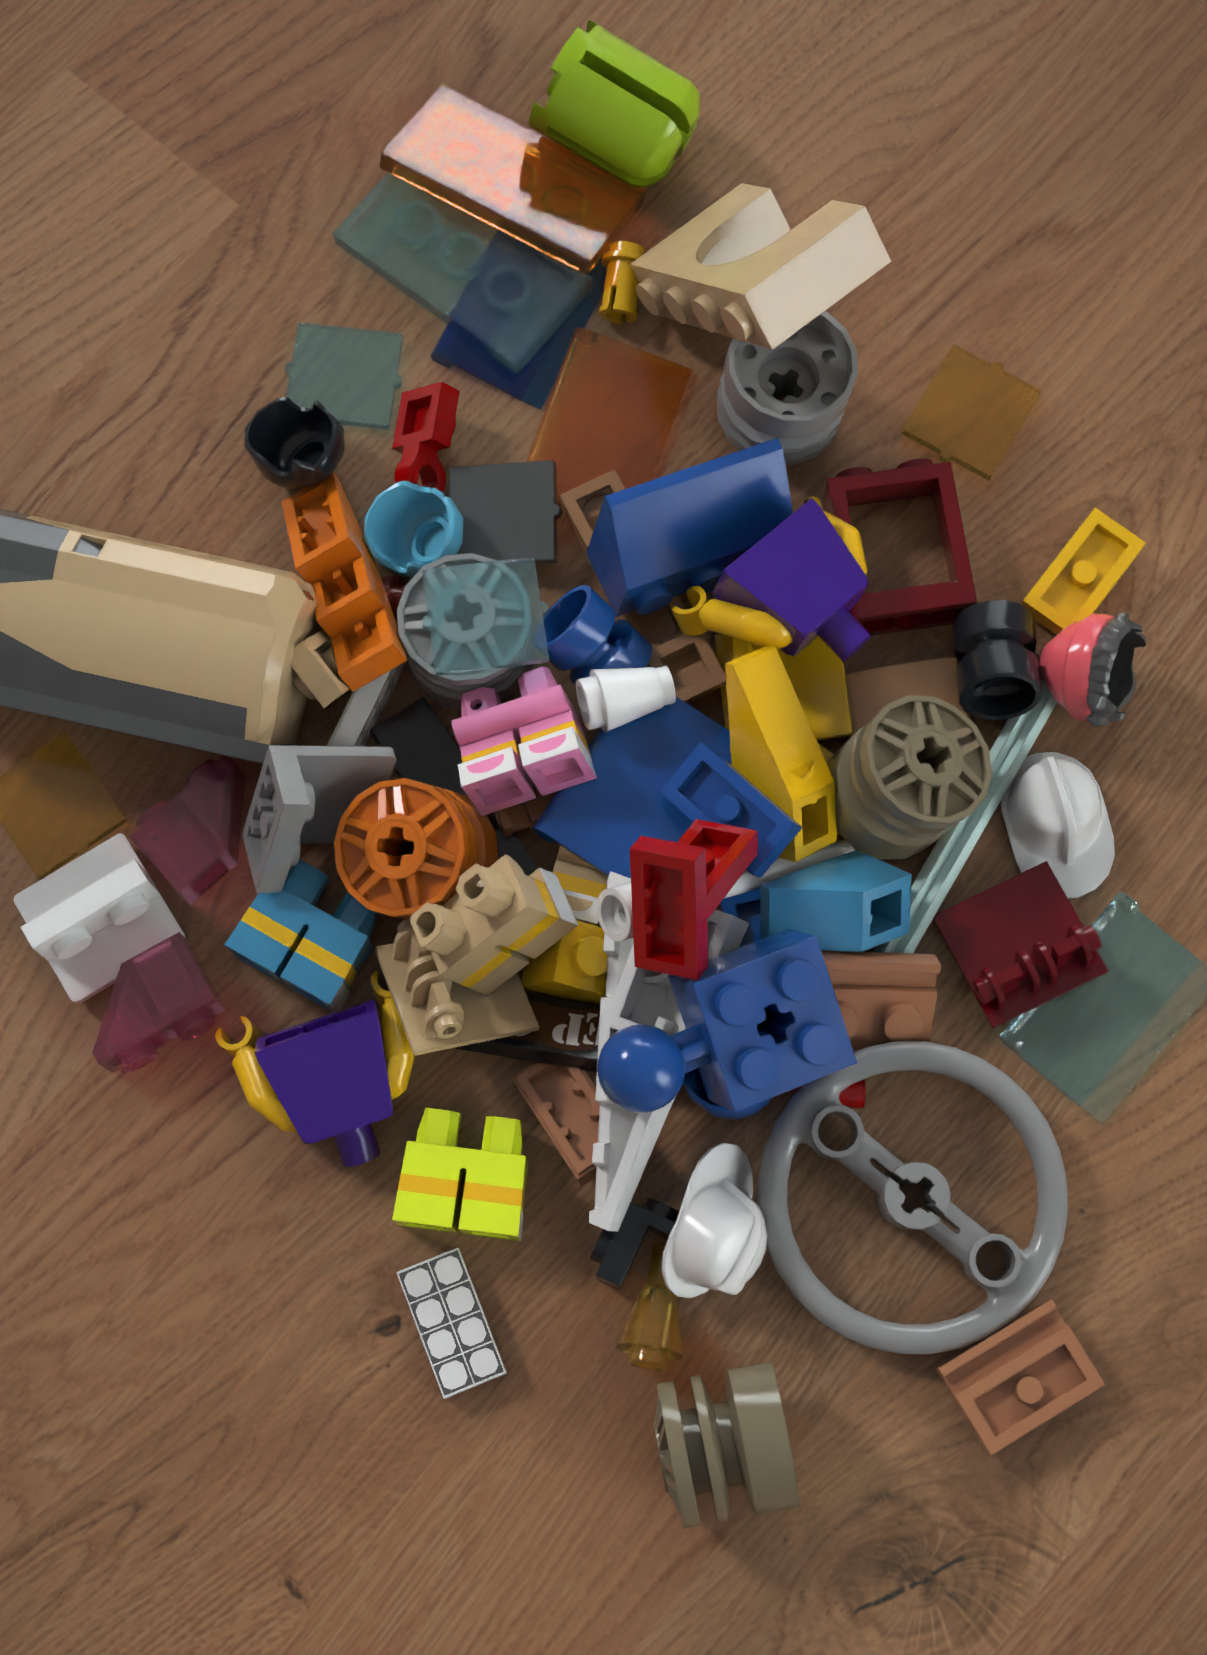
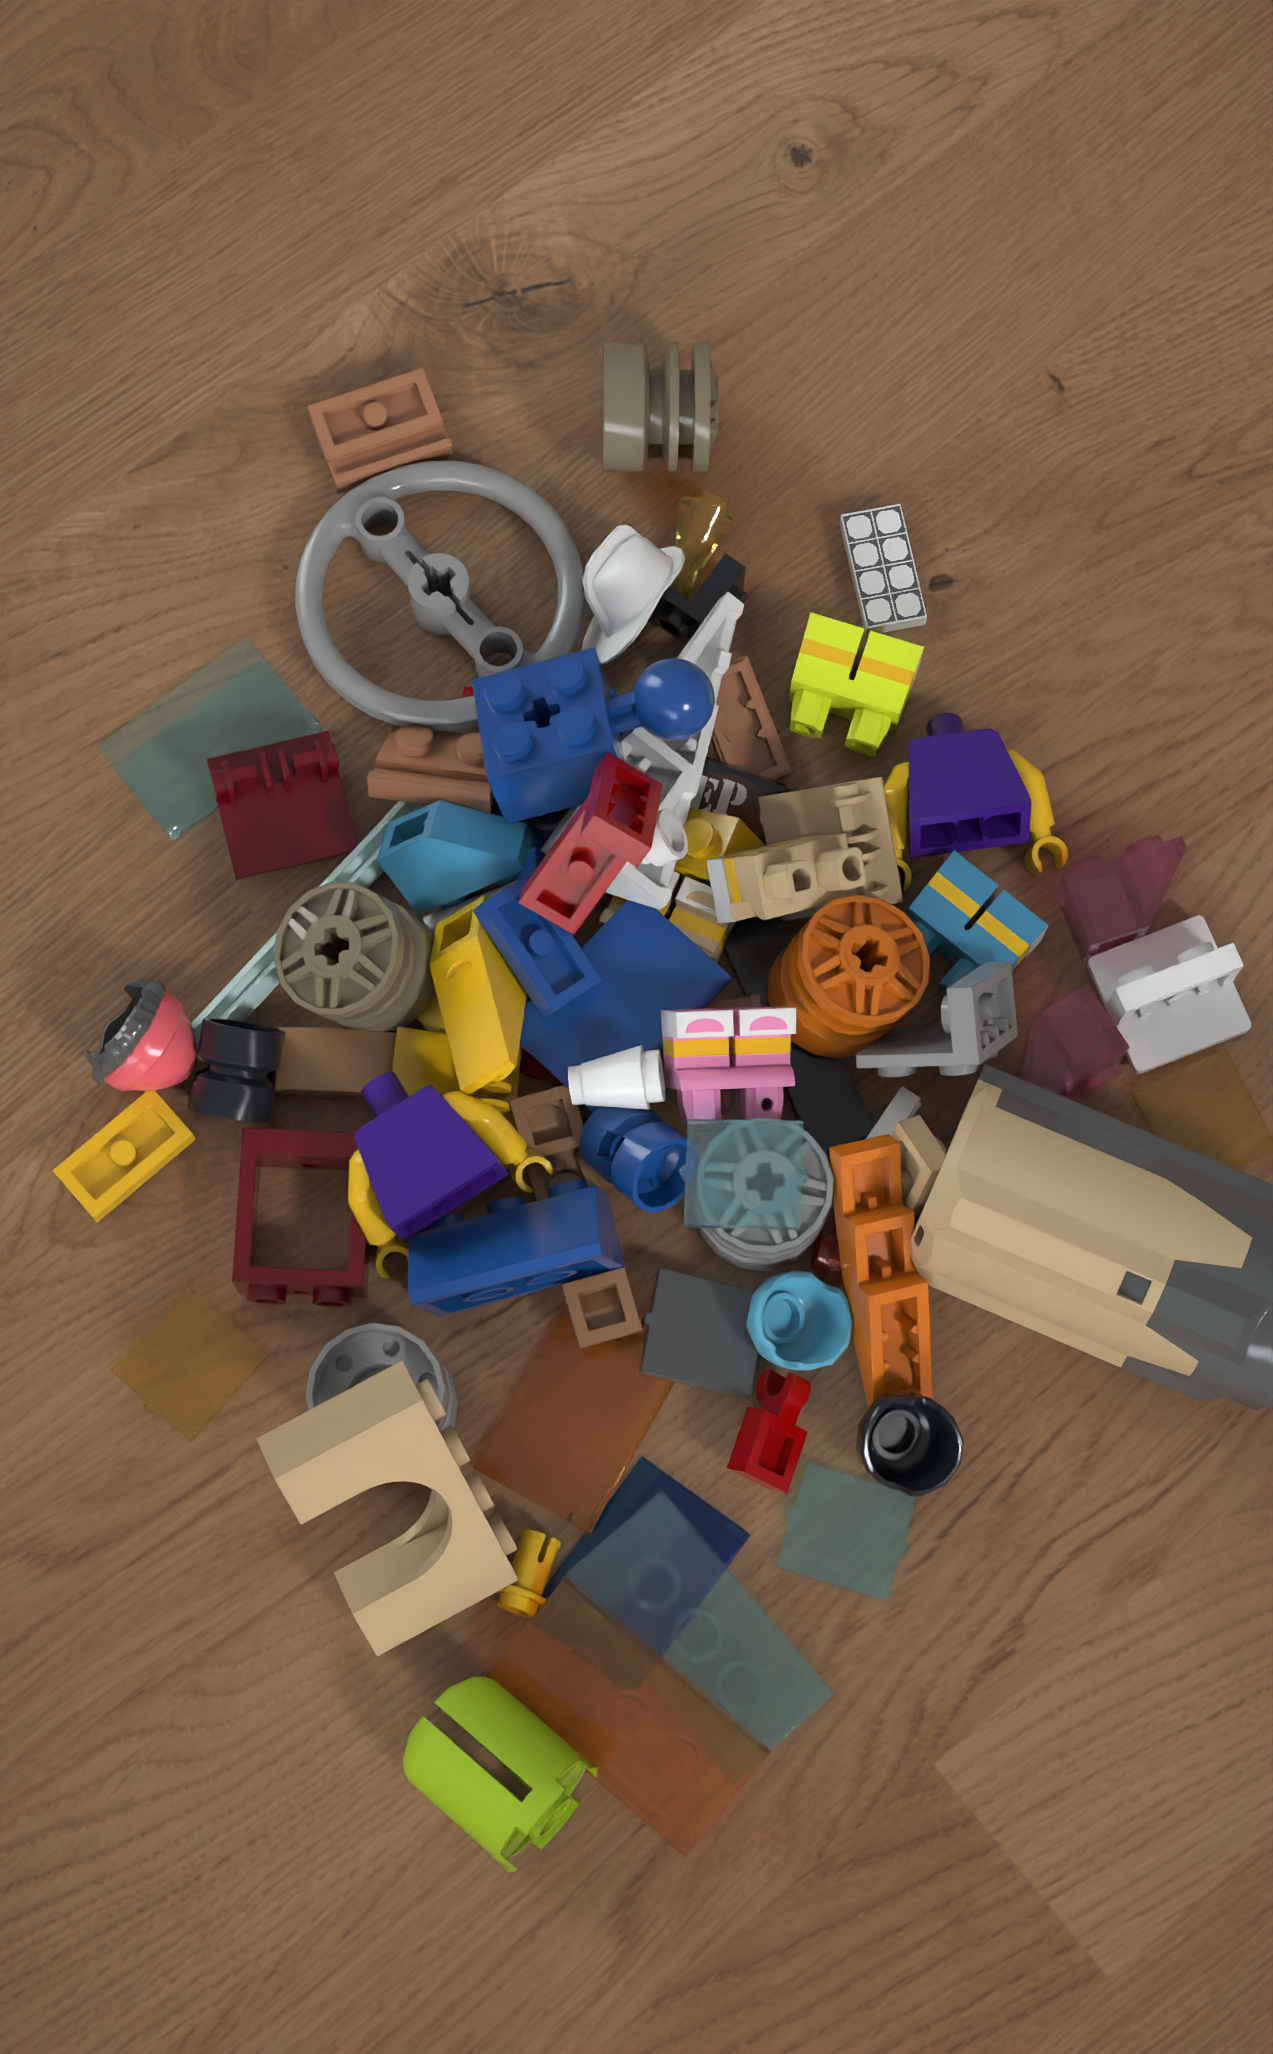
camera: 175 degrees left, 0 degrees up
(1059, 818) = (211, 920): white piece -> none

